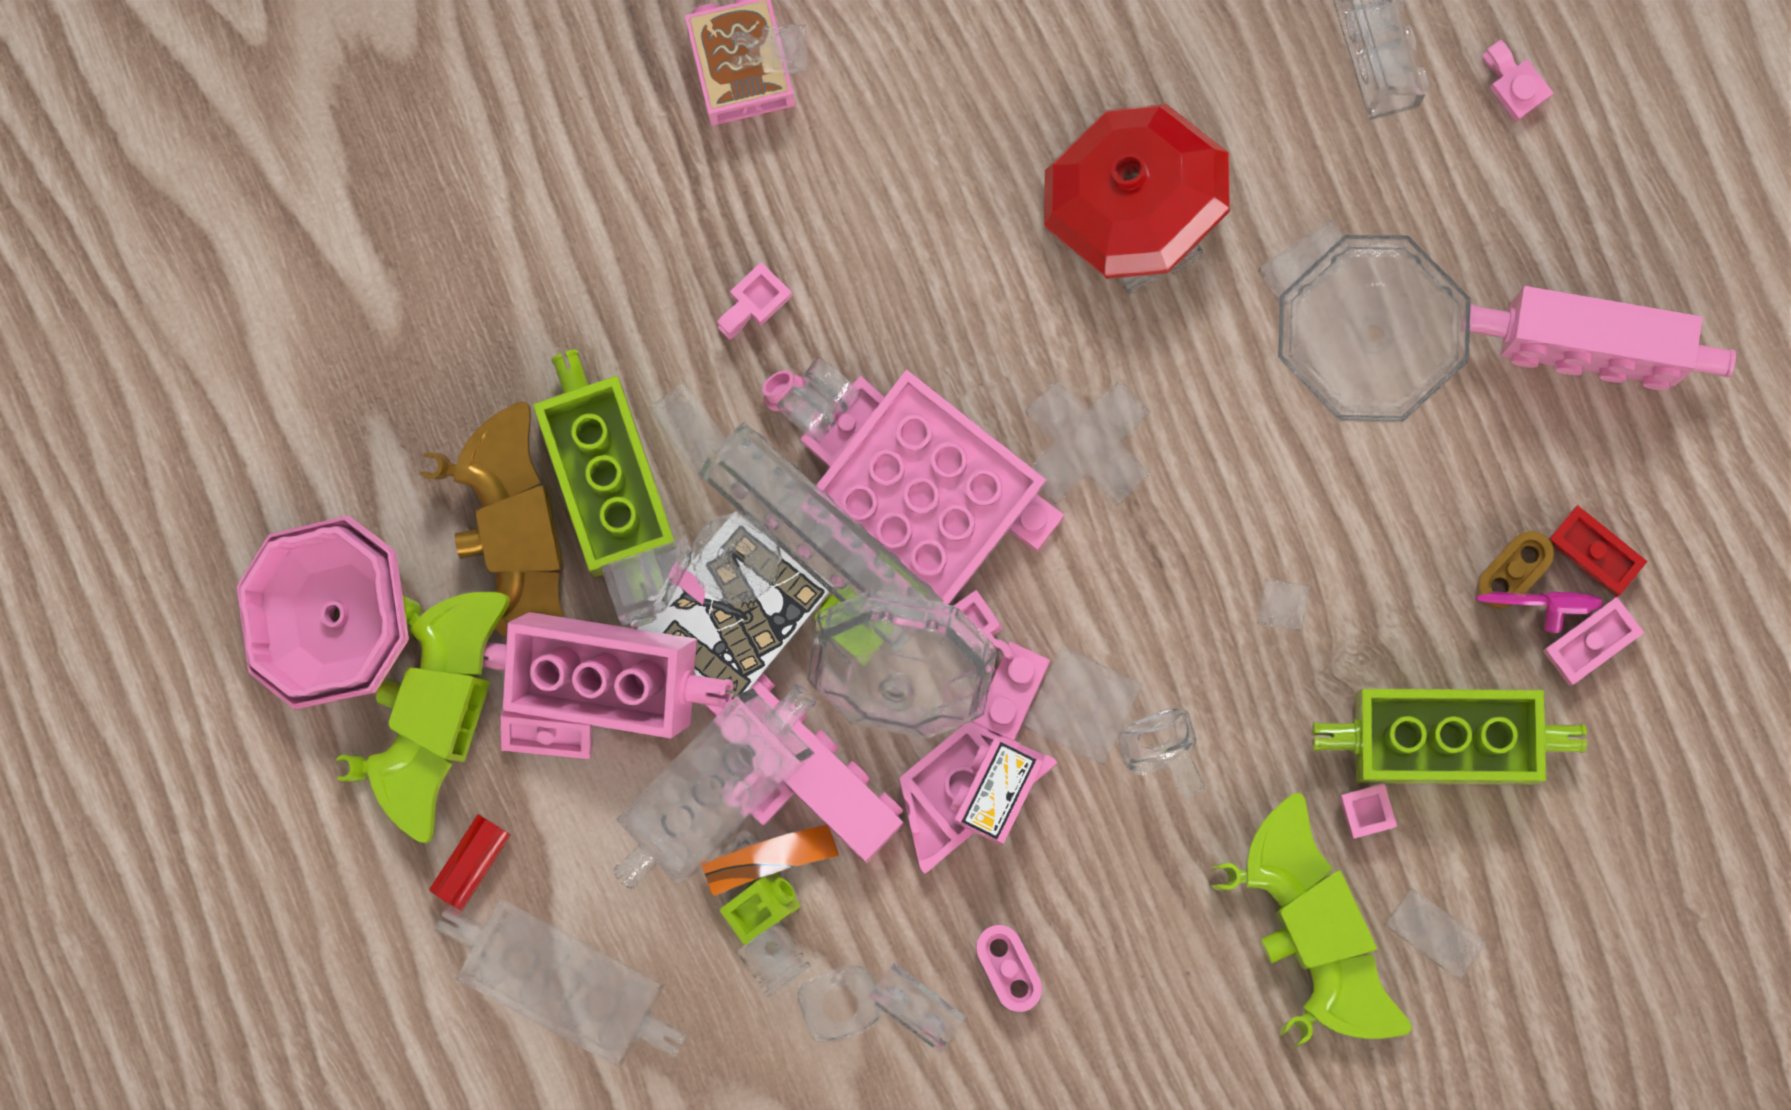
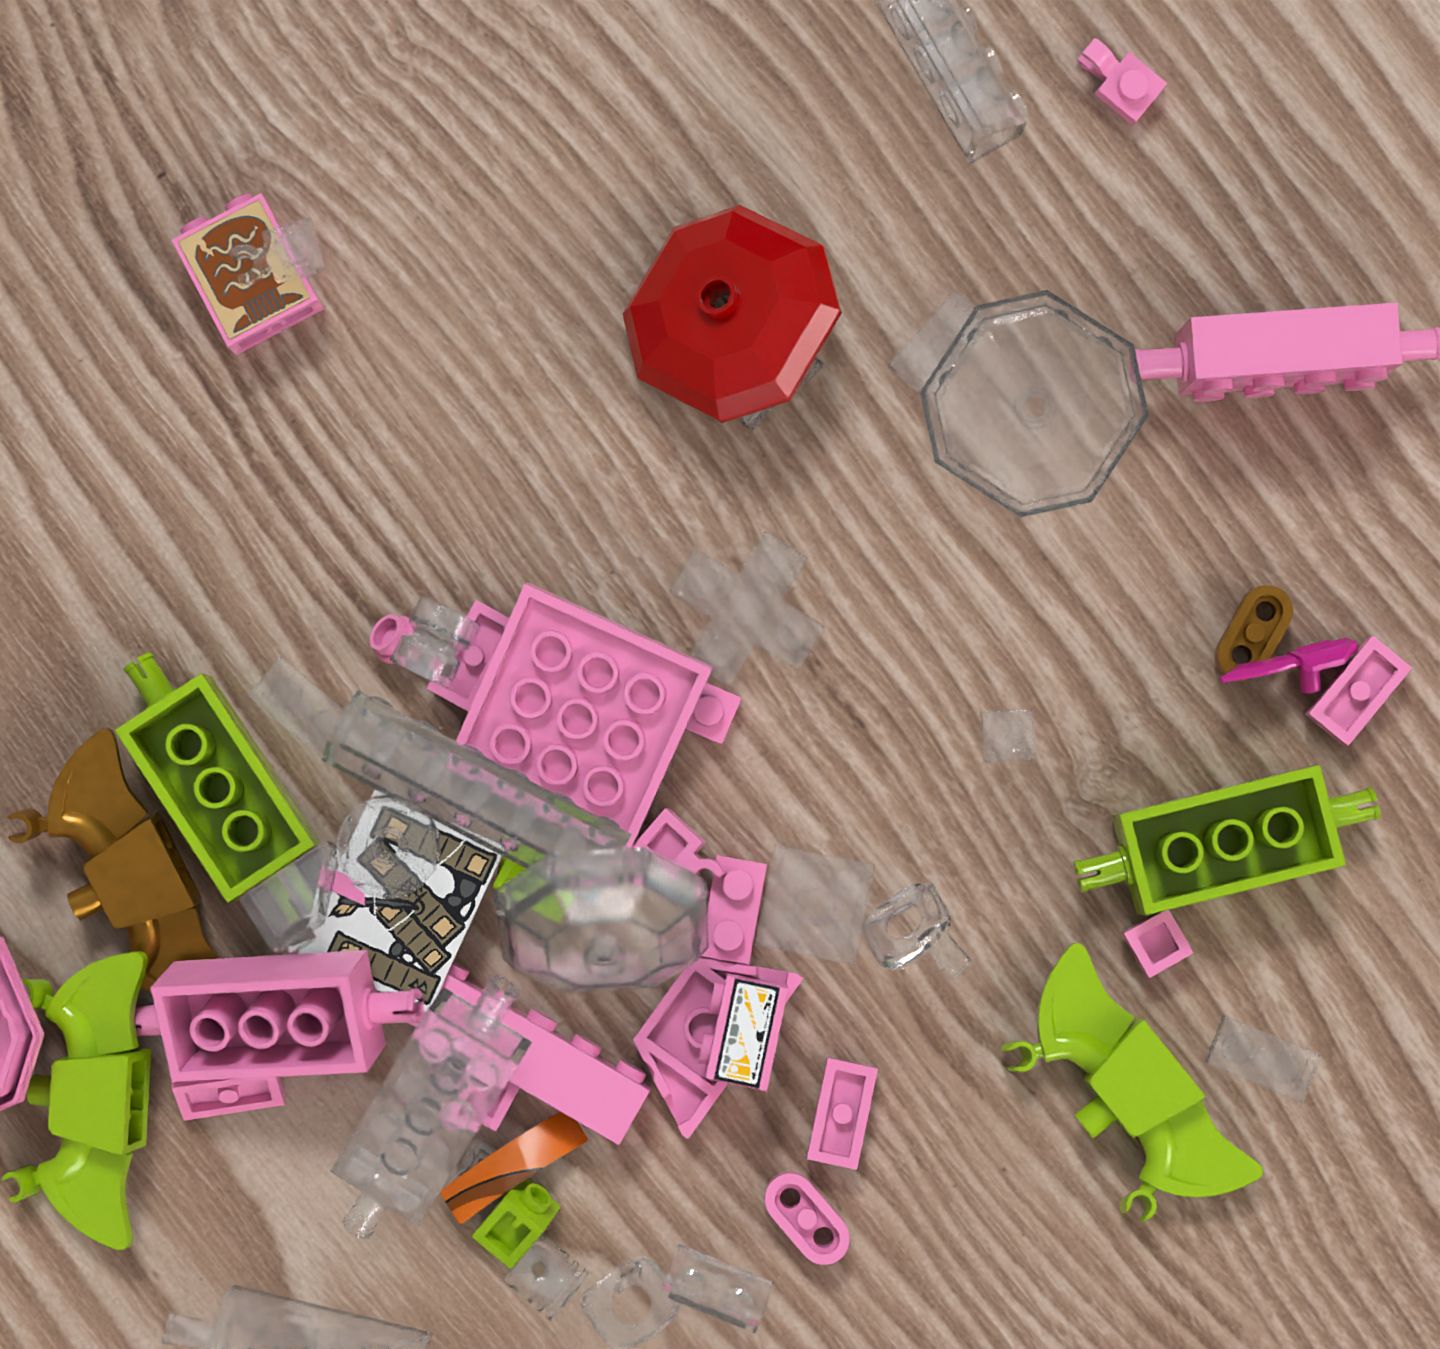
camera: 20 degrees left, 5 degrees up
(469, 862) = (181, 1255): red axle -> none
(755, 297) = (338, 539): bright pink plate -> none
(1061, 886) = (842, 1113): none -> bright pink plate
(1597, 551) = (1338, 589): red plate -> none

